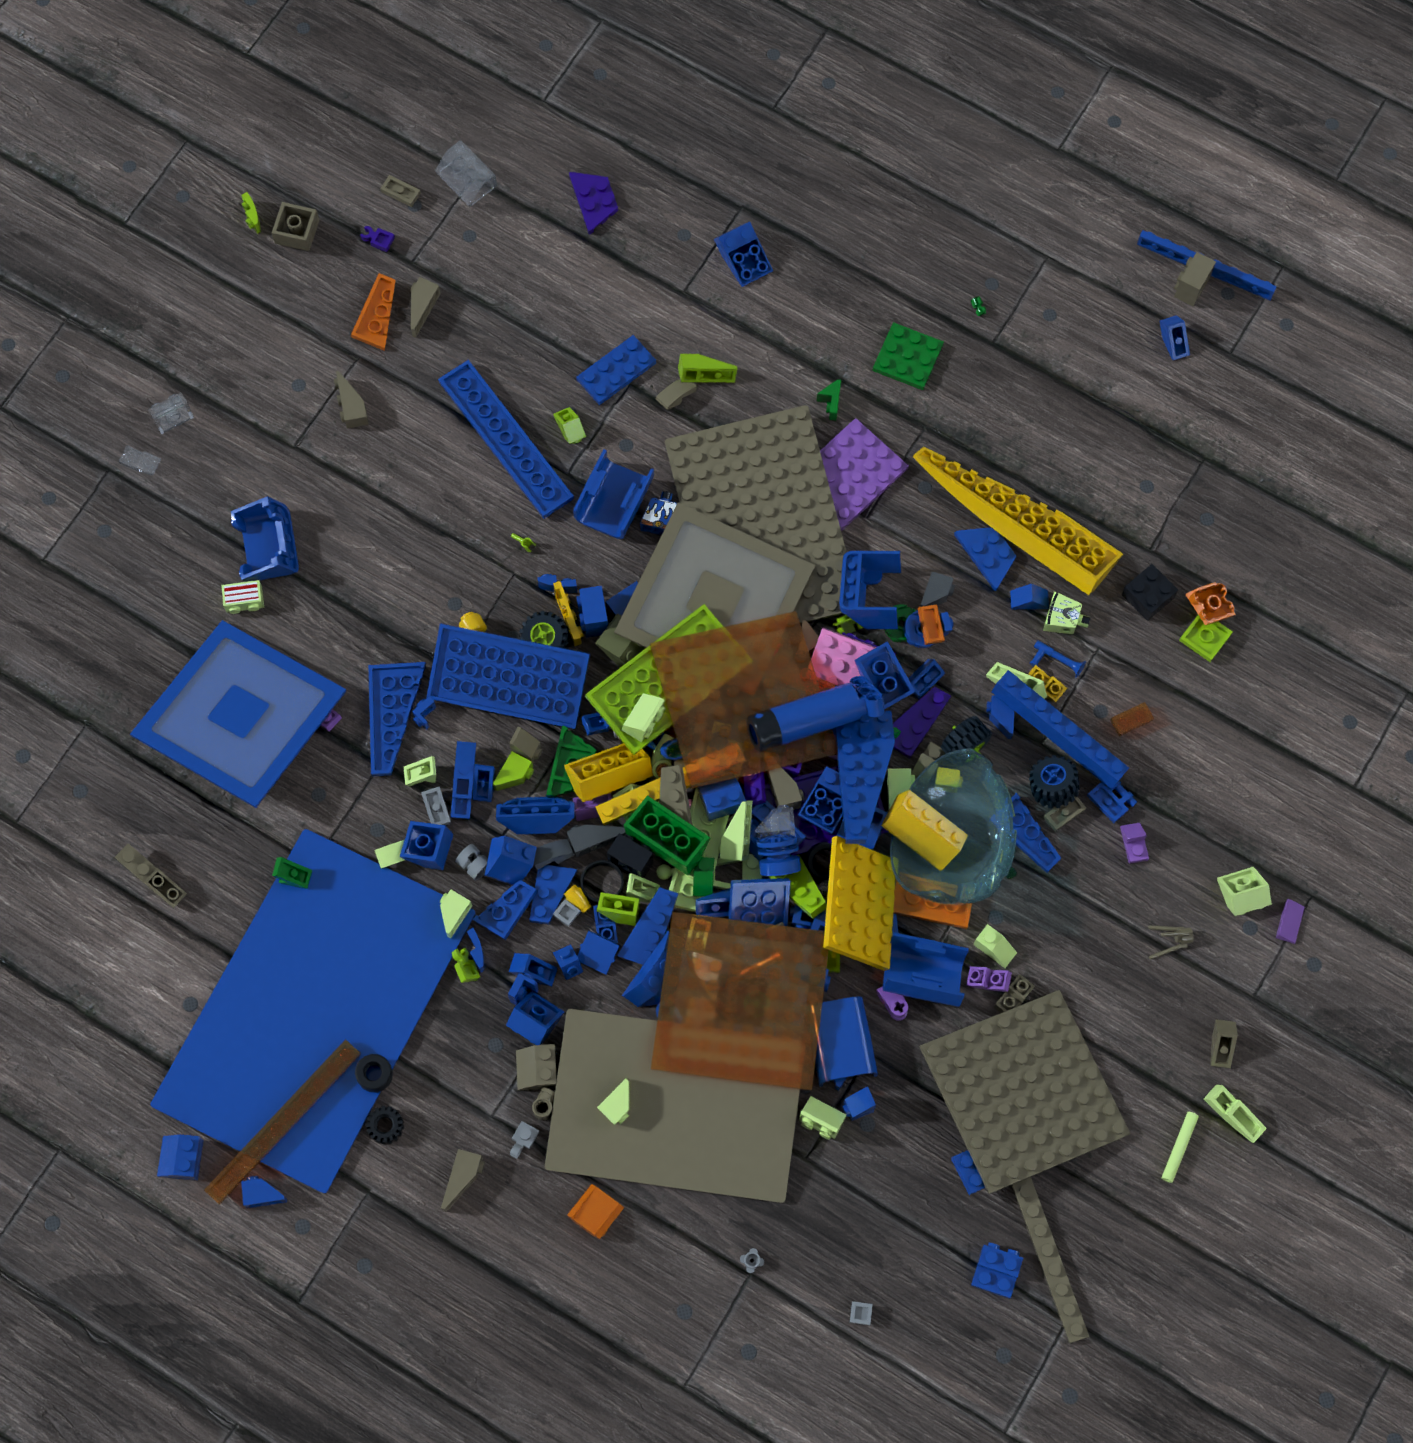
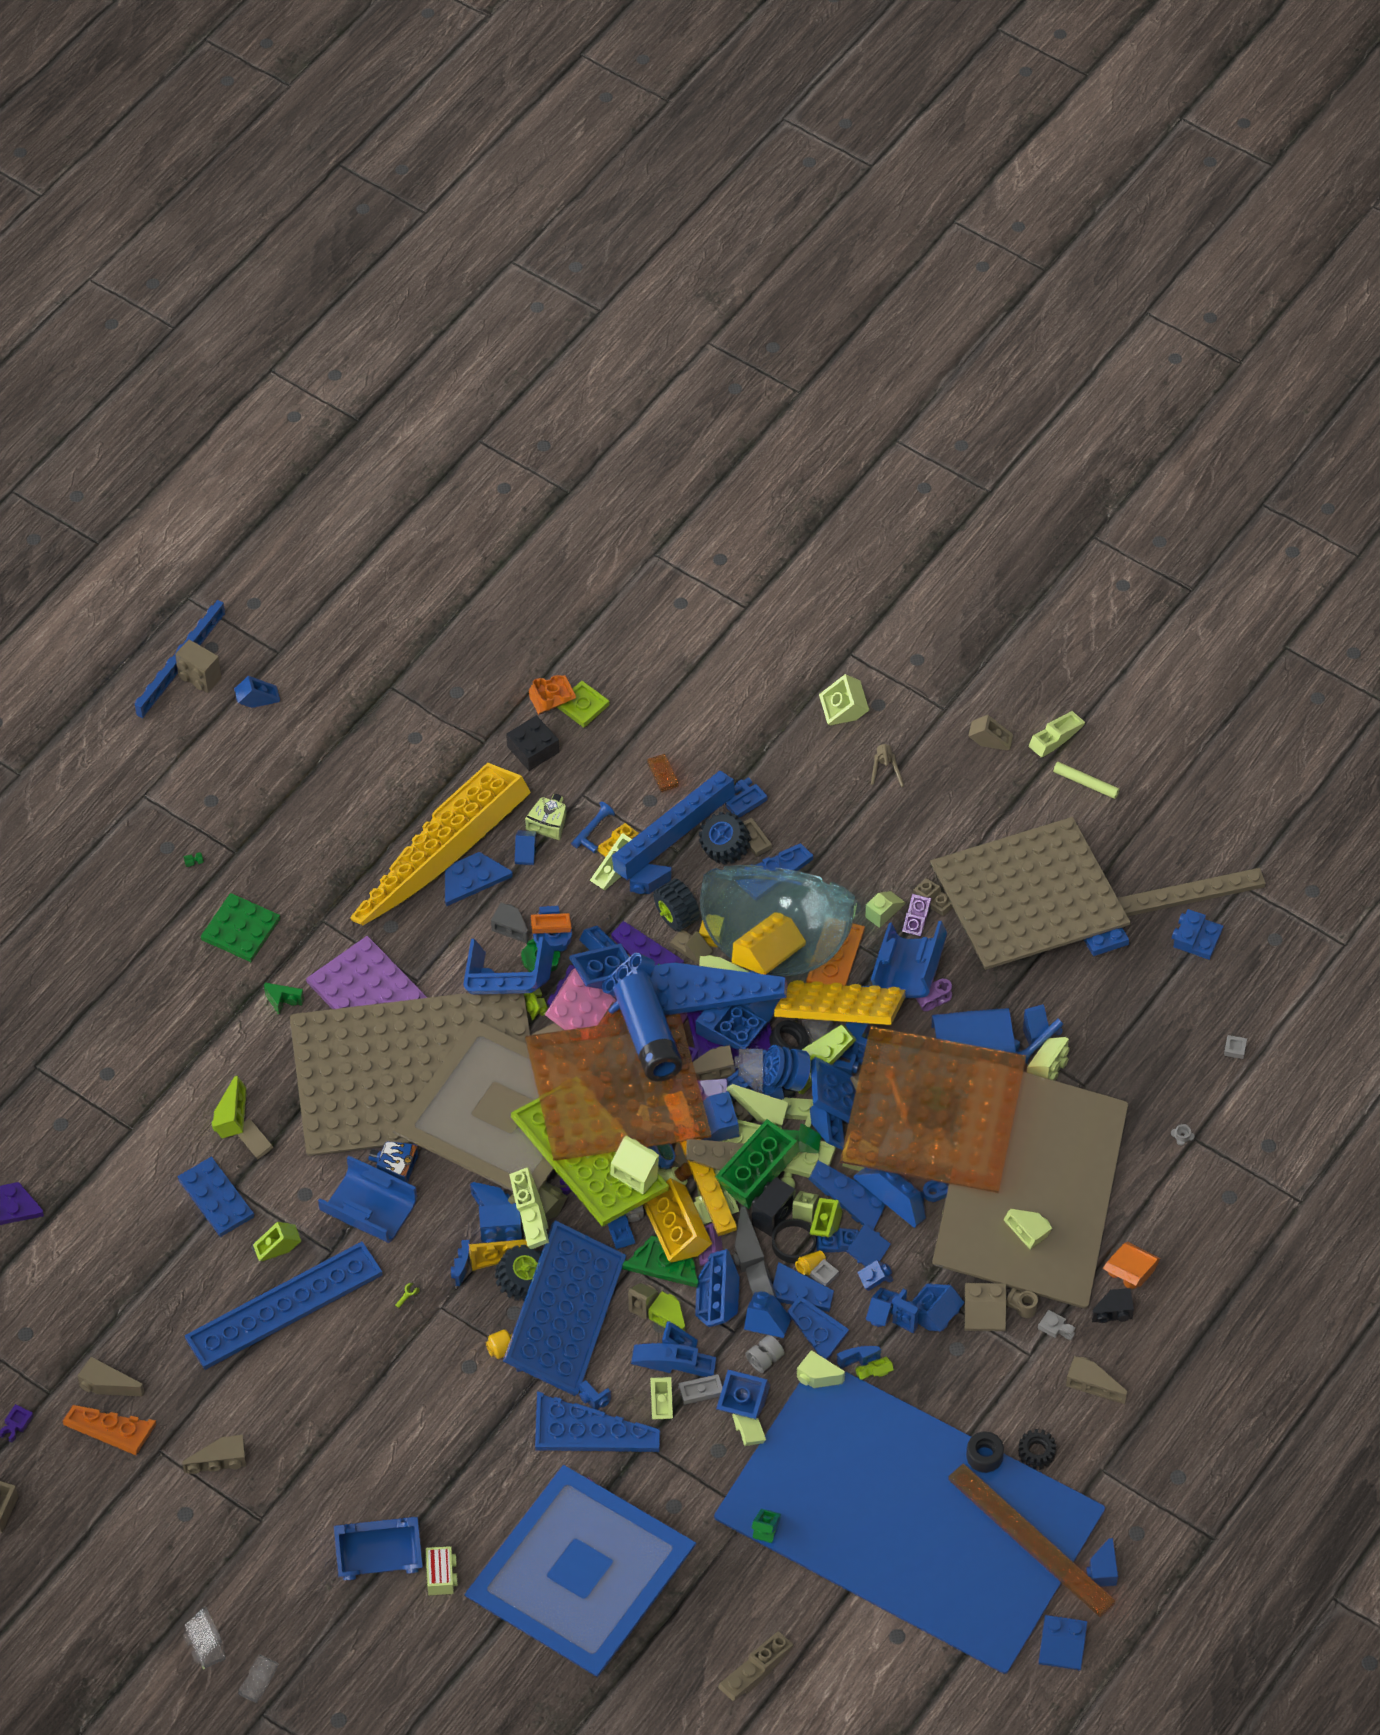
camera: 85 degrees left, 15 degrees down
(546, 1195) = (1114, 1306): none -> black slope
(603, 630) = (530, 1208): none -> yellowish green slope
(743, 254) = (95, 1066): blue slope -> none
(827, 1093) = (1055, 1028): none -> blue piece
(1134, 842) = (786, 785): medium lavender slope -> none
(1290, 921) = (875, 672): medium lavender slope -> none

